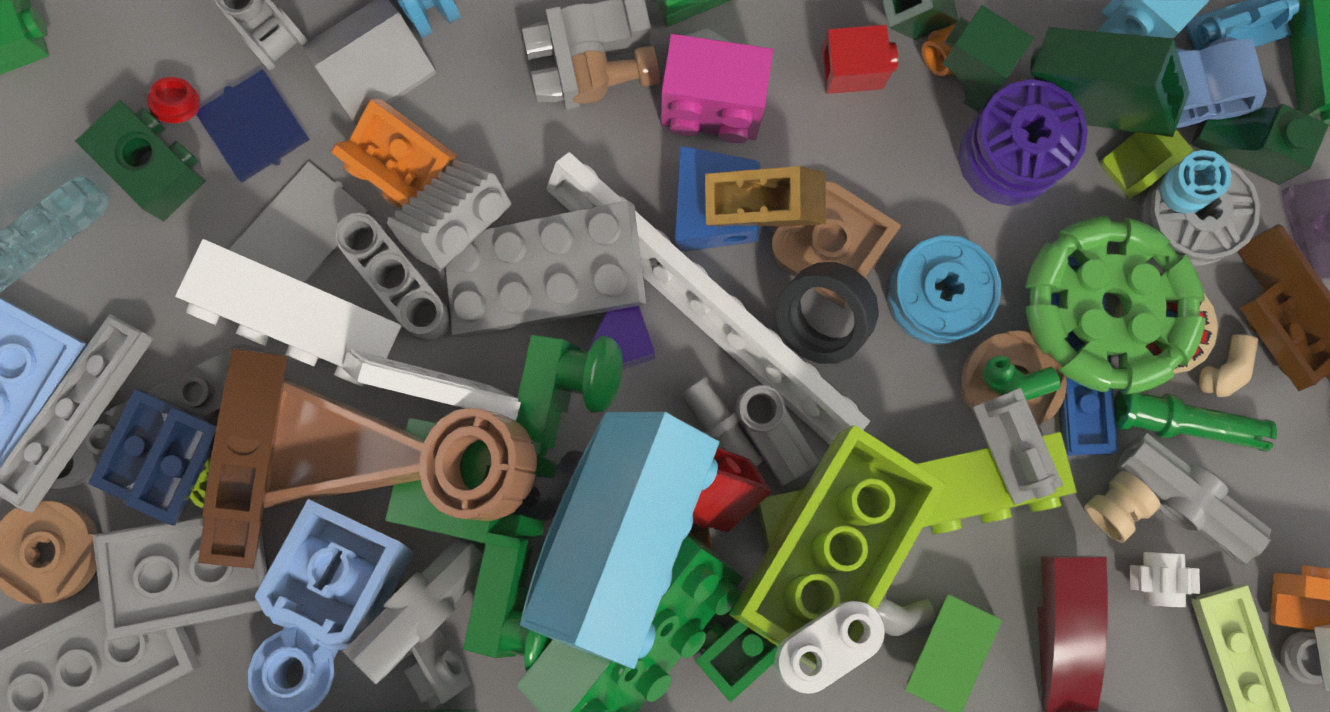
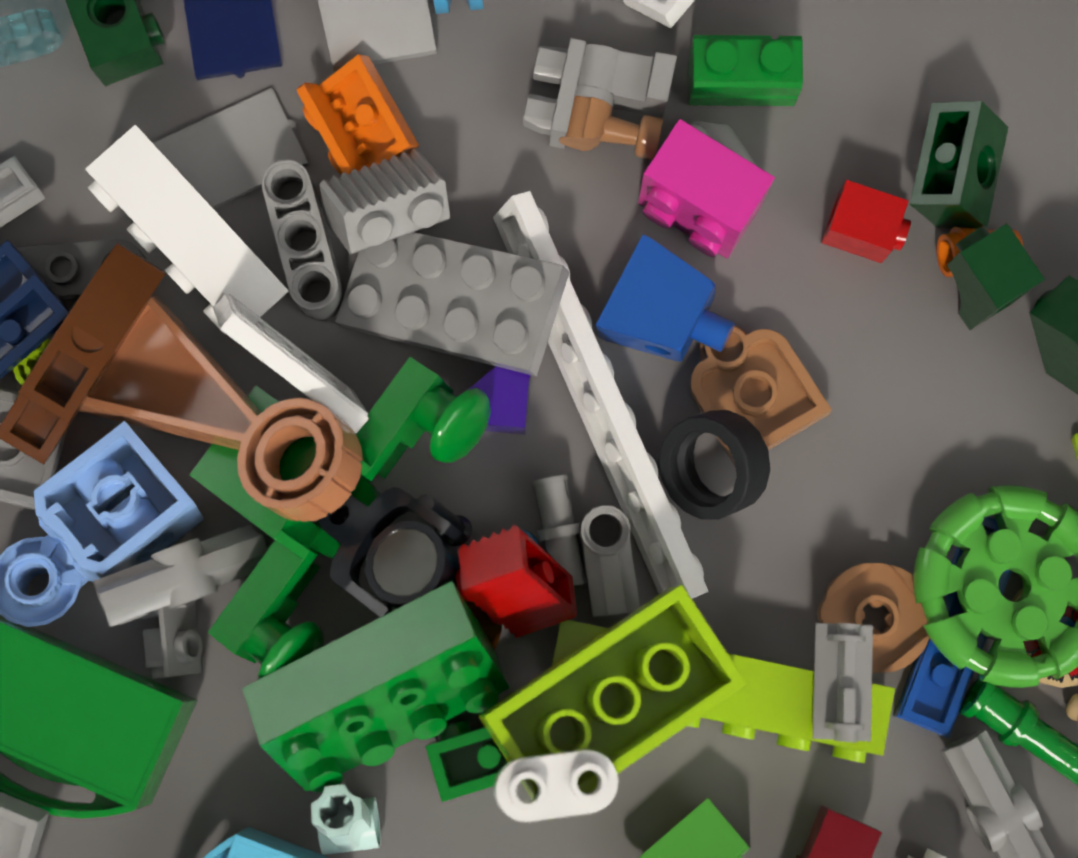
camera: 30 degrees right, 0 degrees up
(619, 534) = (402, 585): medium azure piece -> none
(766, 197) = (702, 323): pearl gold arch -> none
(905, 619) = (644, 798): light grey arm -> none
(967, 275) = (877, 492): dark azure wheel -> none
(1001, 160) = (961, 388): dark purple wheel -> none
(1005, 378) = (864, 609): green arm -> none
(1122, 506) = (927, 792): tan wheel -> none

